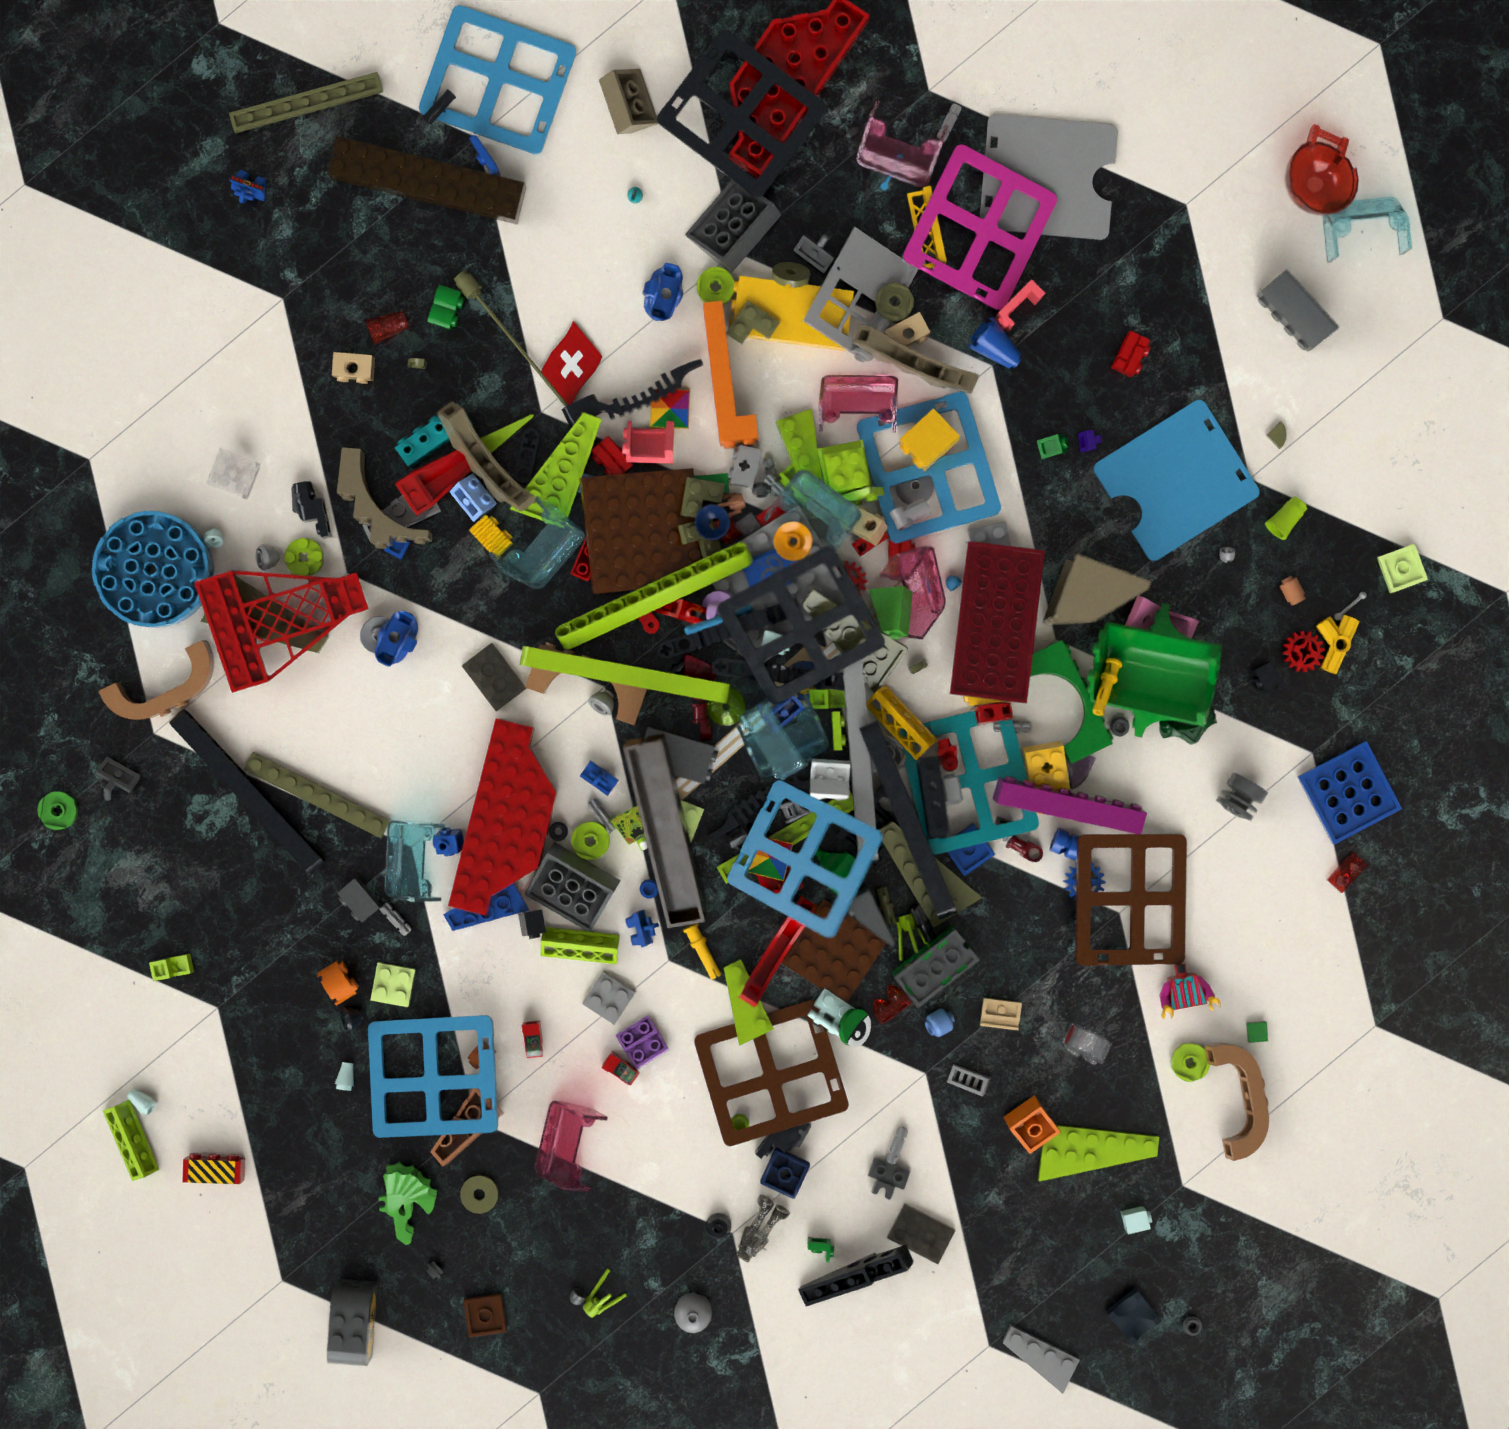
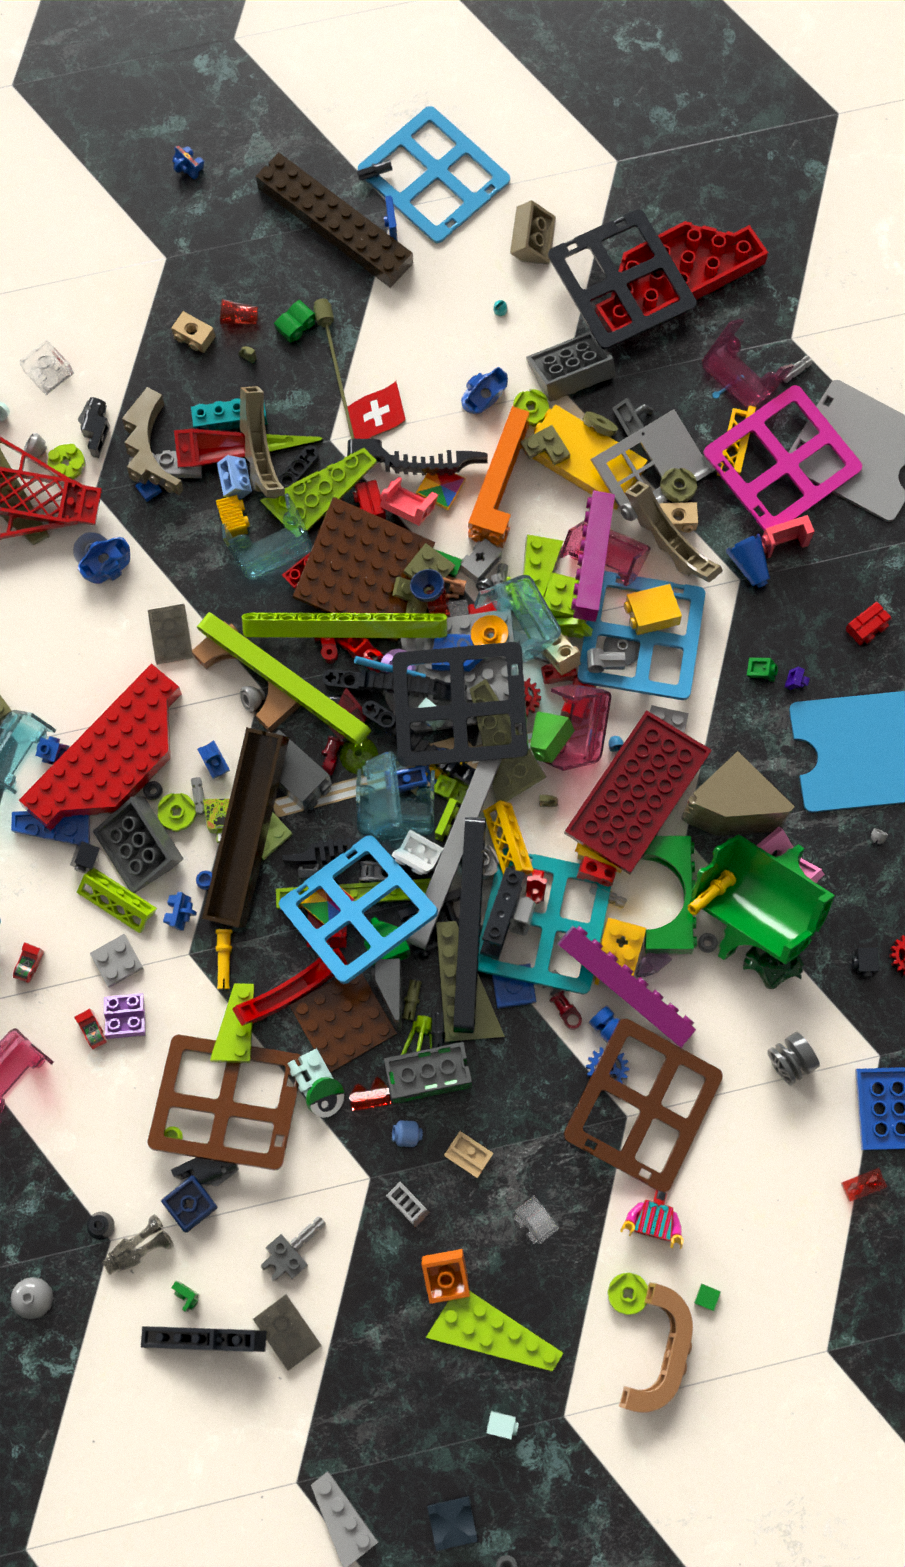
camera: 20 degrees right, 15 degrees down
(306, 102) = (269, 122): olive plate -> none
(853, 419) = (593, 557): none -> magenta brick

